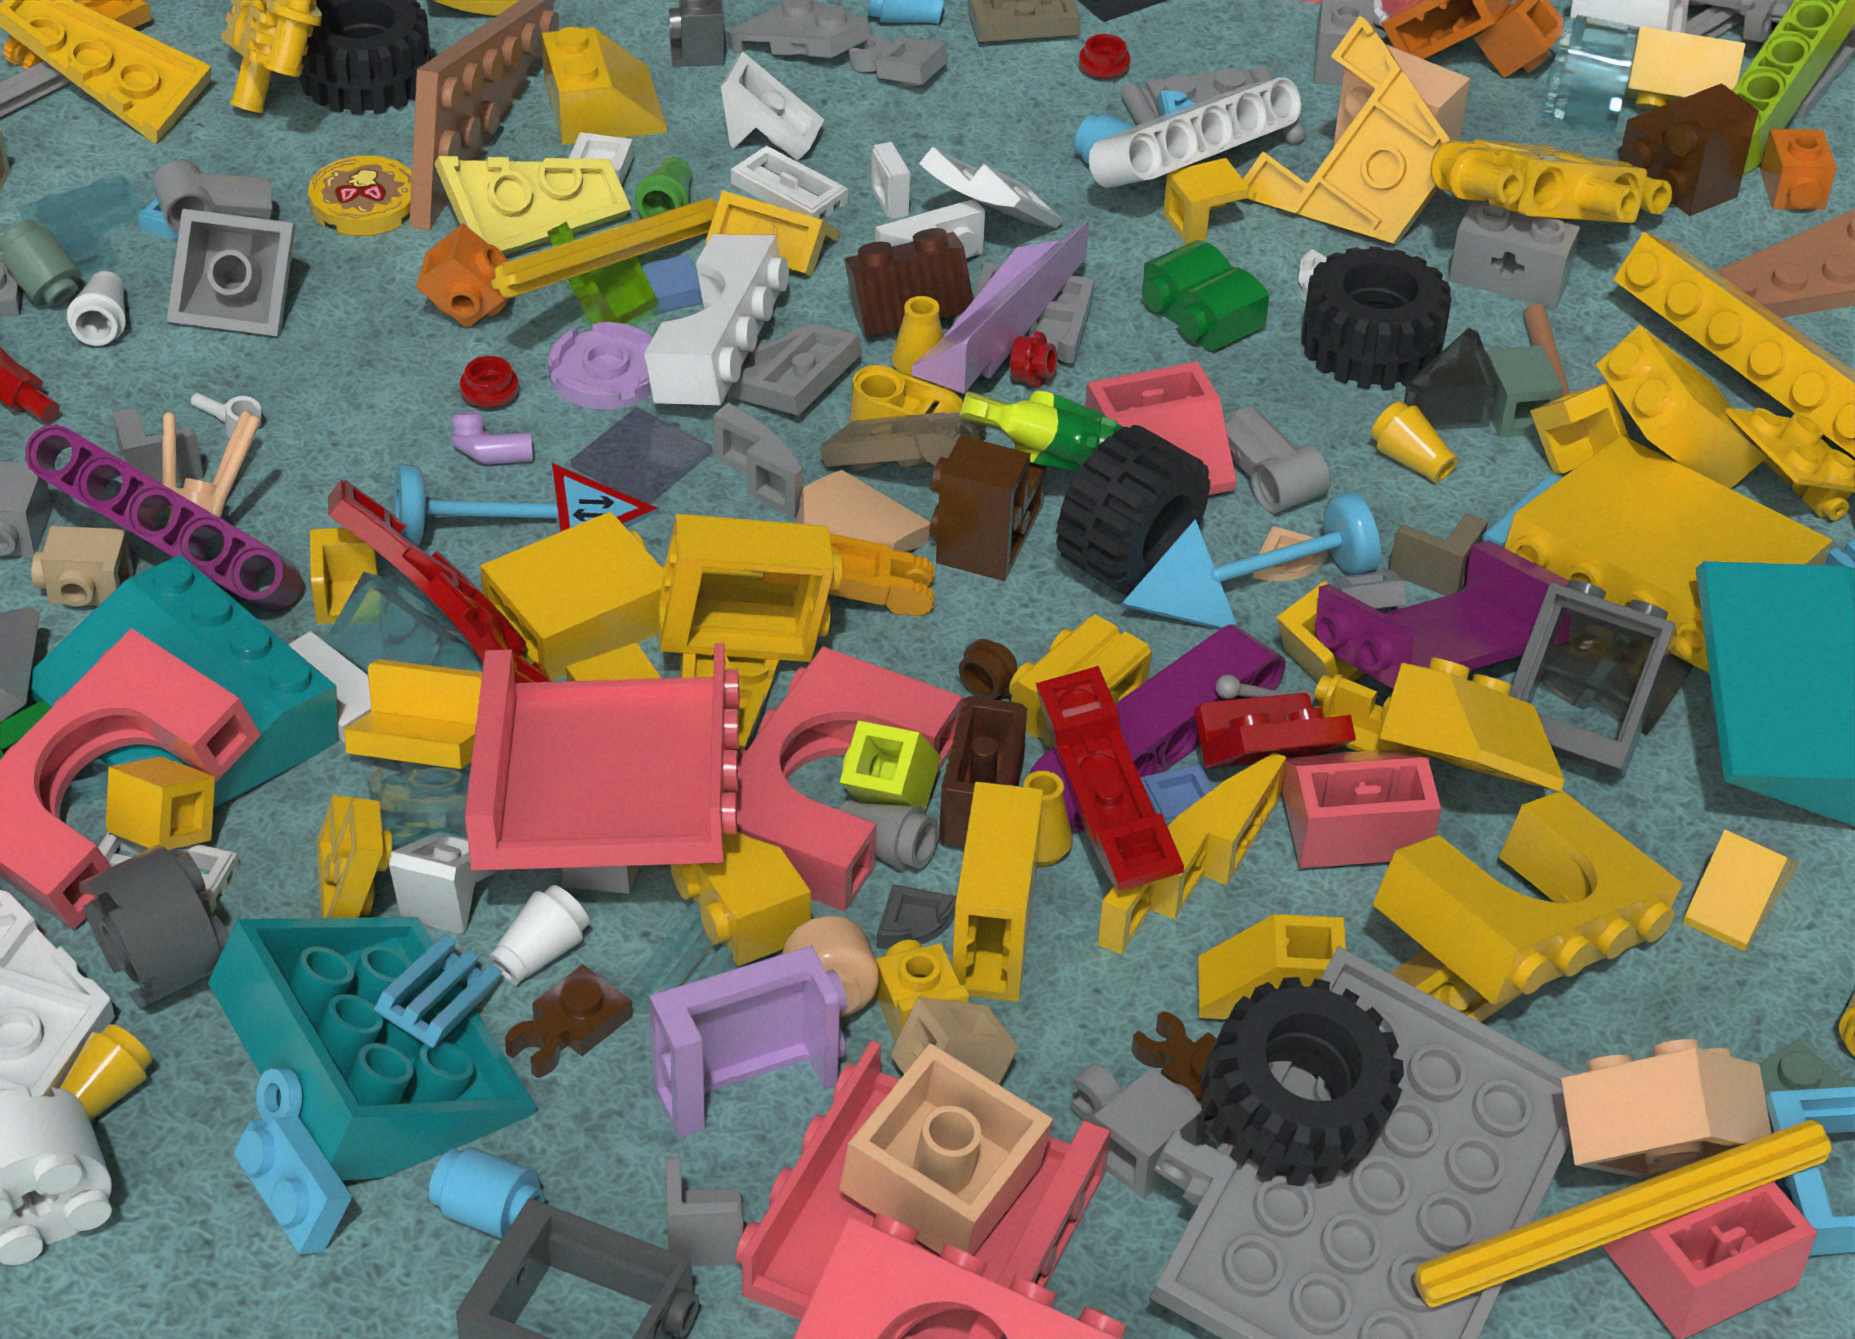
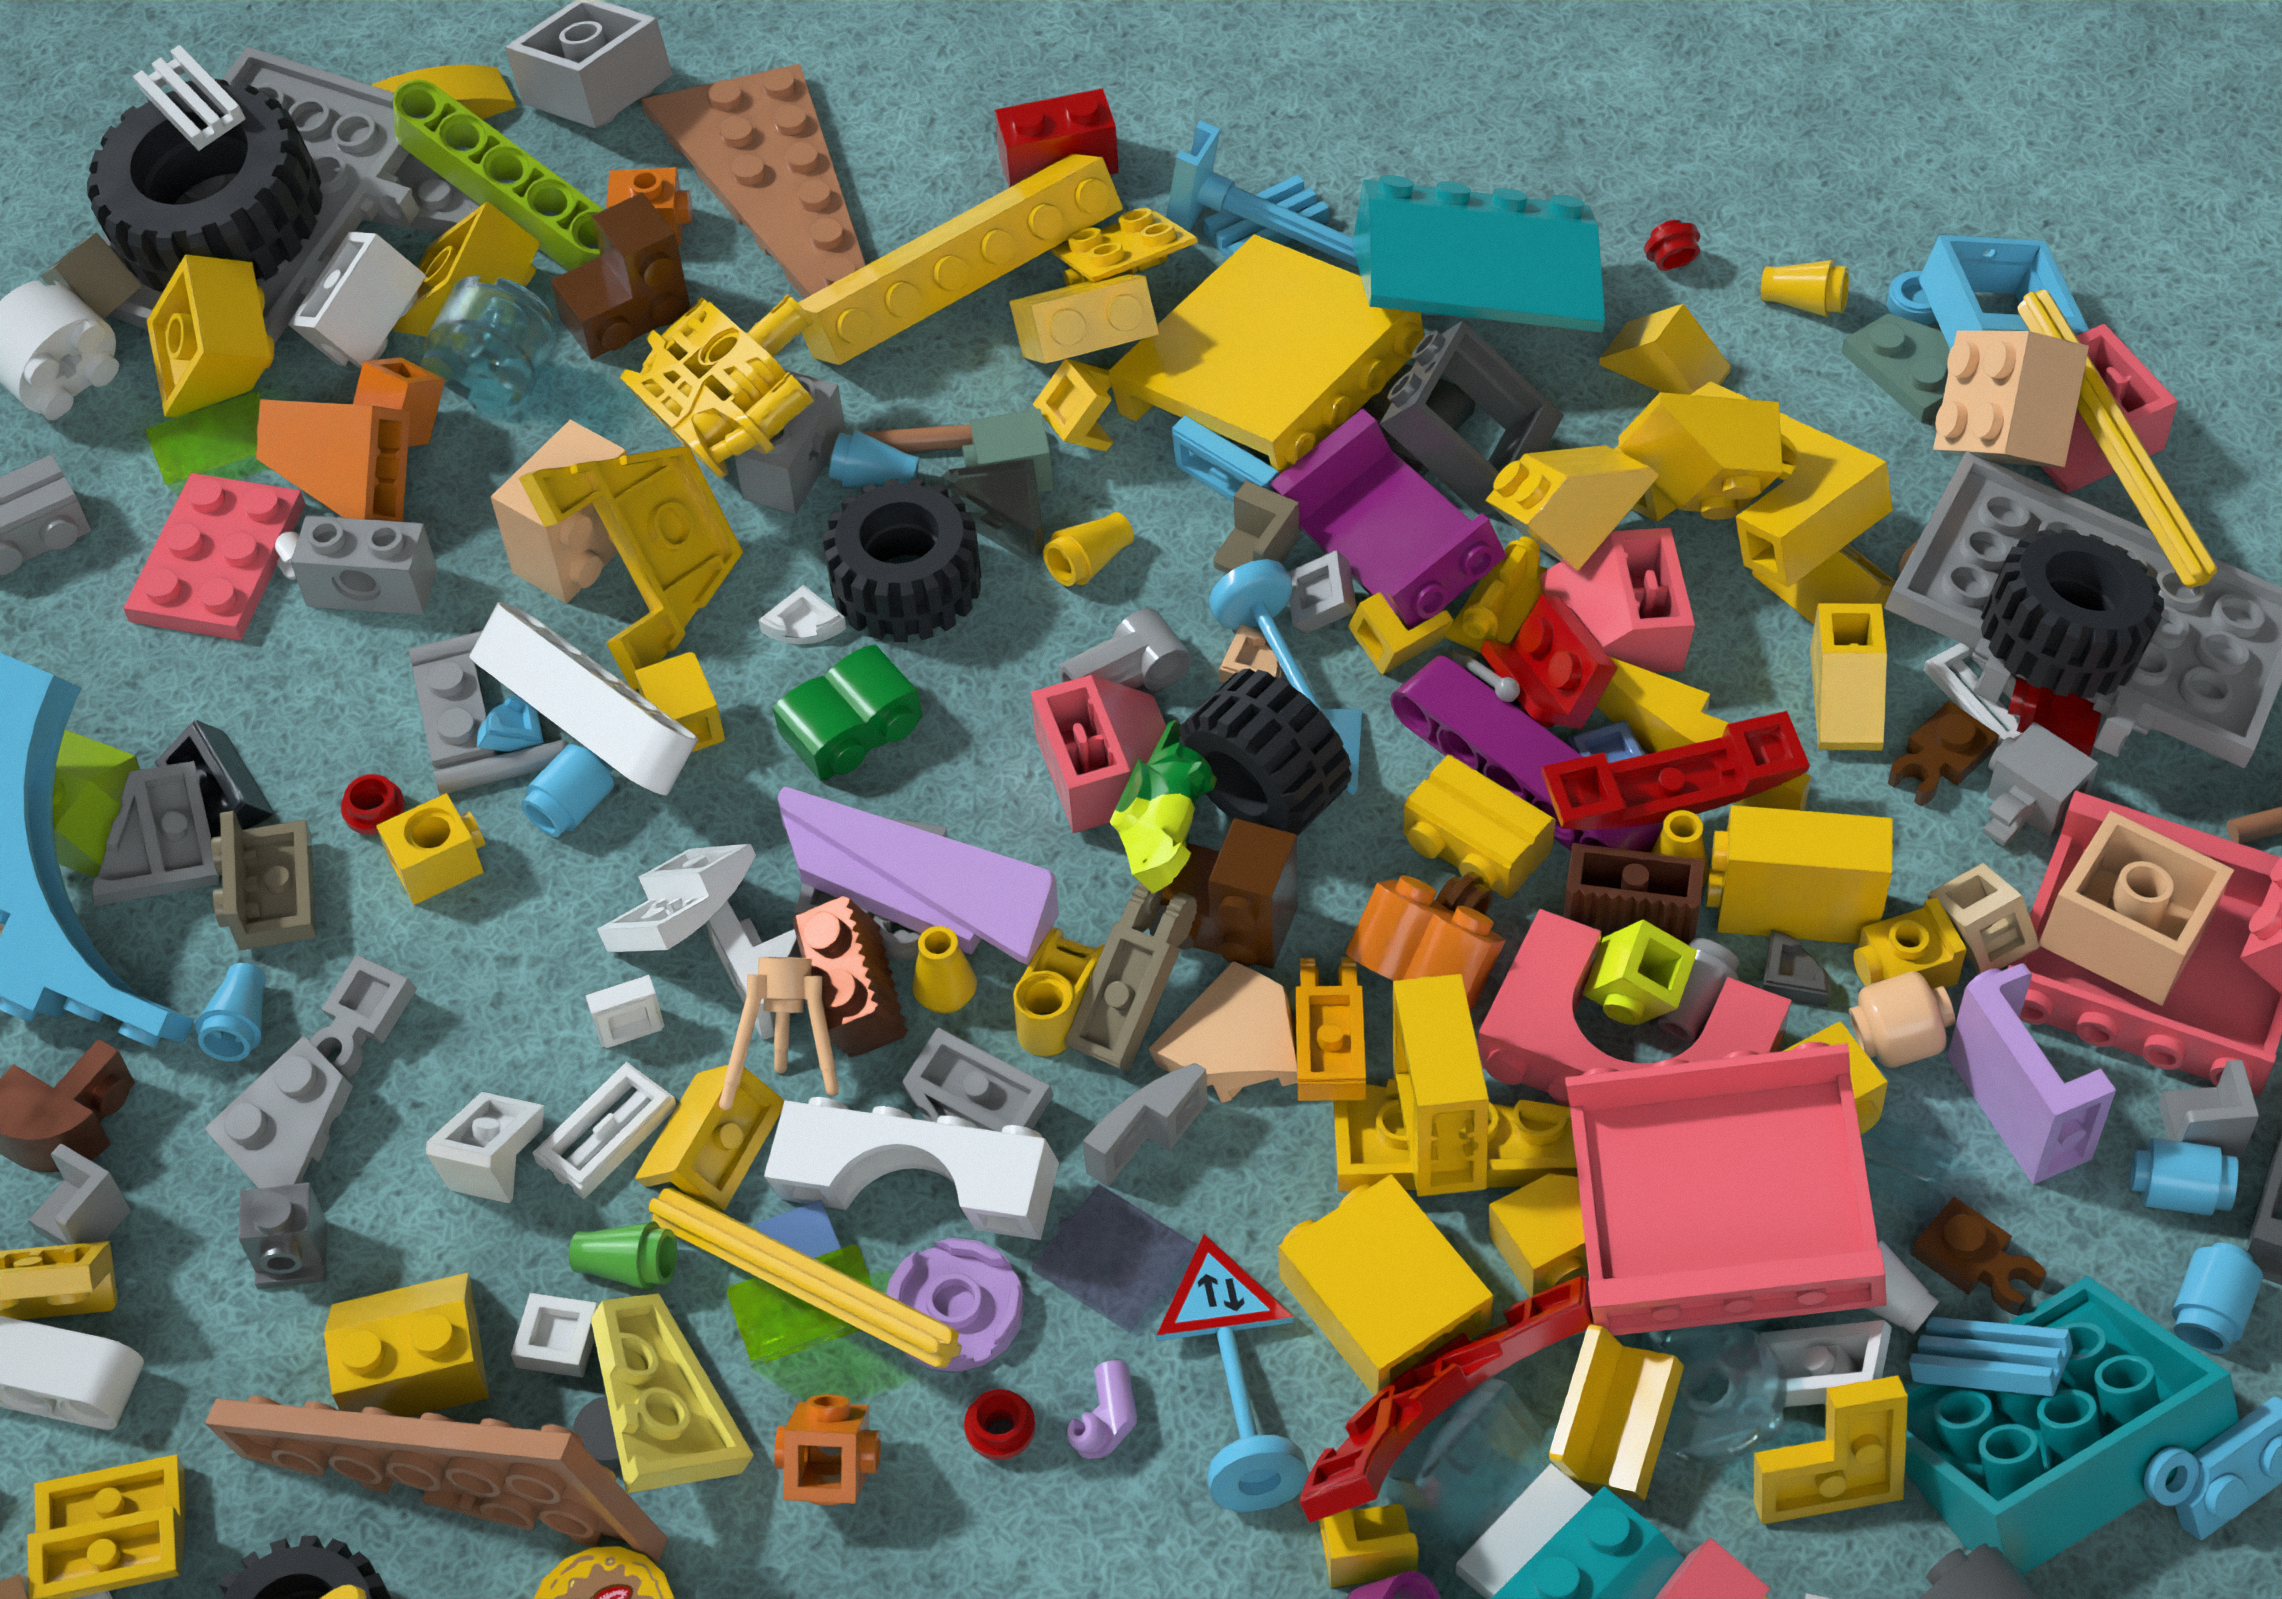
camera: 85 degrees left, 10 degrees up
(629, 1182) = (2184, 1177): none -> medium azure brick
(878, 220) = (784, 986): none -> light nougat plant
(932, 625) = (1414, 937): none -> orange brick
(1053, 79) = (432, 847): none -> yellow brick
(1501, 306) = (866, 461): none -> medium azure cone
(1518, 811) = (1707, 450): none -> yellow slope

